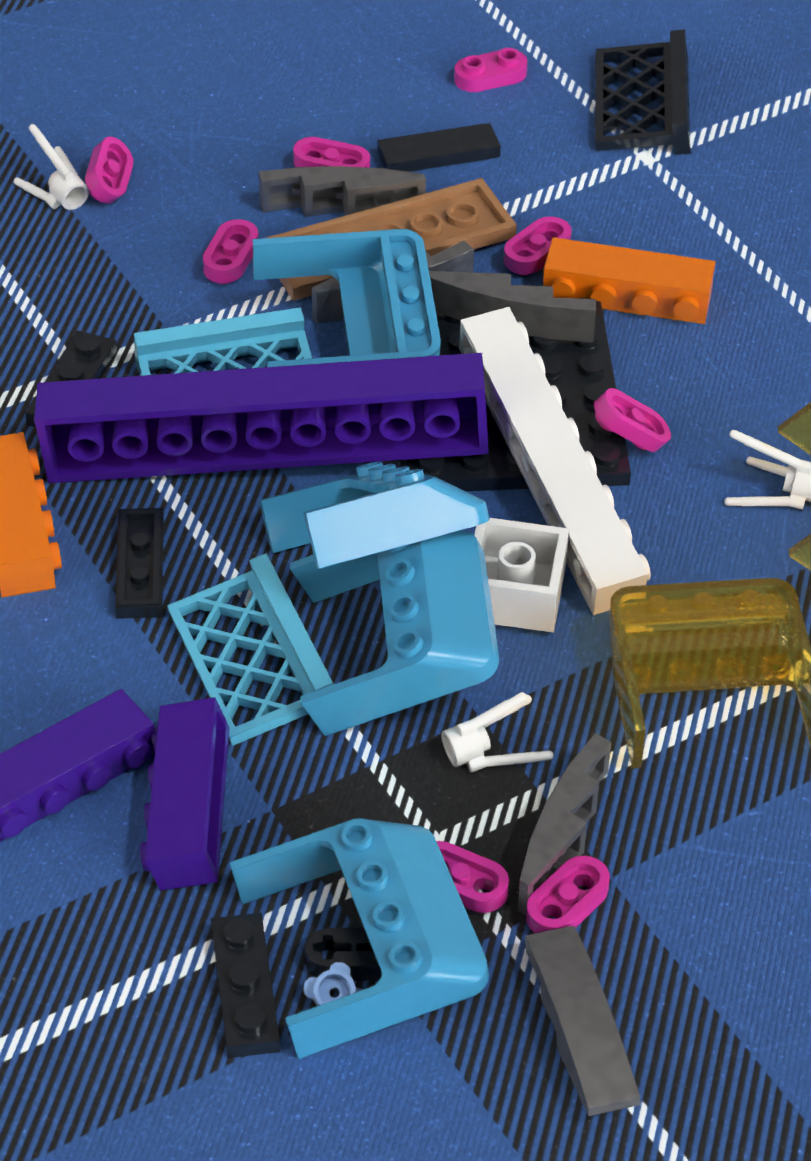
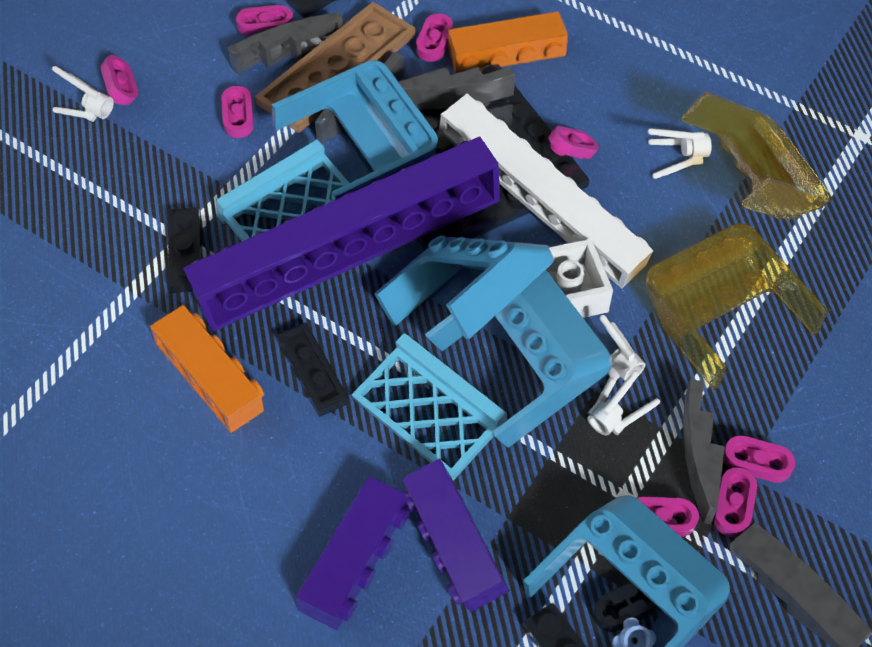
camera: 25 degrees left, 10 degrees up
(530, 680) = (624, 358): none -> white plant
(636, 864) = (758, 458): none -> dark pink plate

